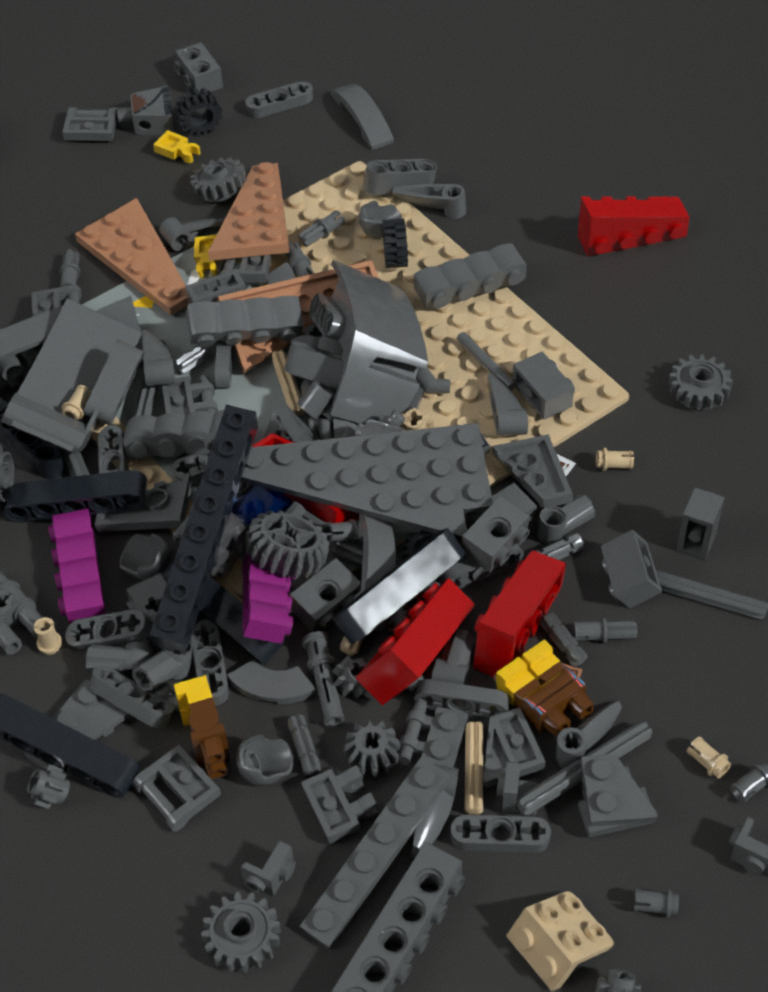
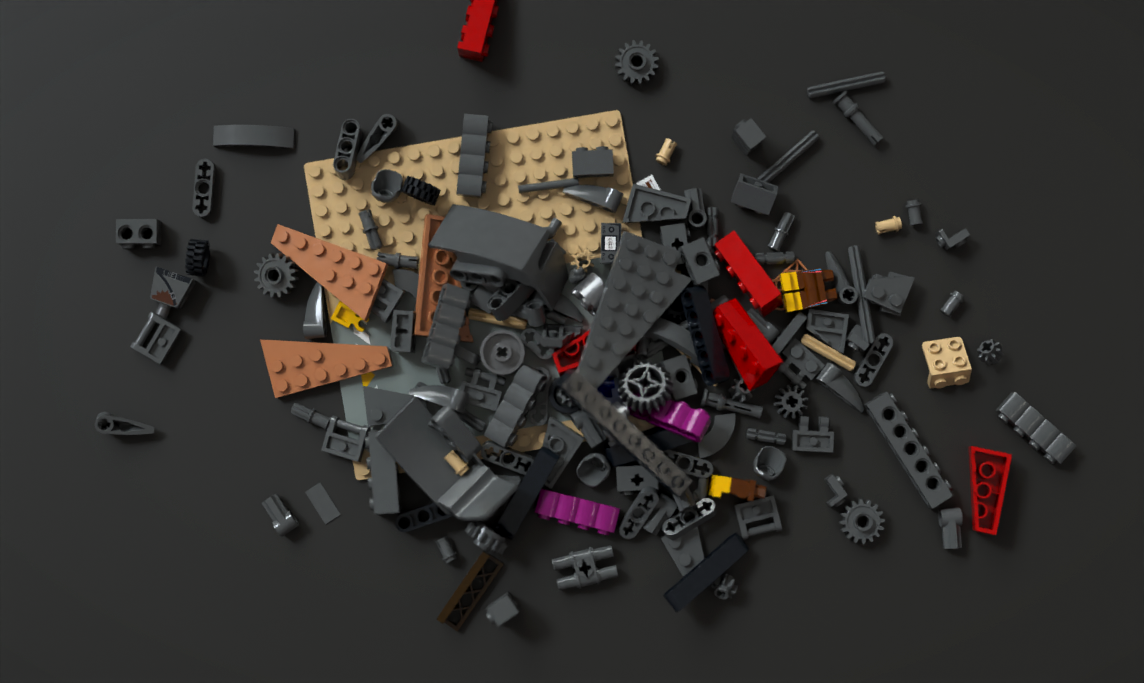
camera: 70 degrees left, 35 degrees up
(48, 639) = (617, 545): tan pin -> none
(175, 145) = (217, 289): yellow plate -> none
(248, 387) = (500, 341): none -> flat silver wheel
(375, 853) = (855, 431): dark grey plate -> none

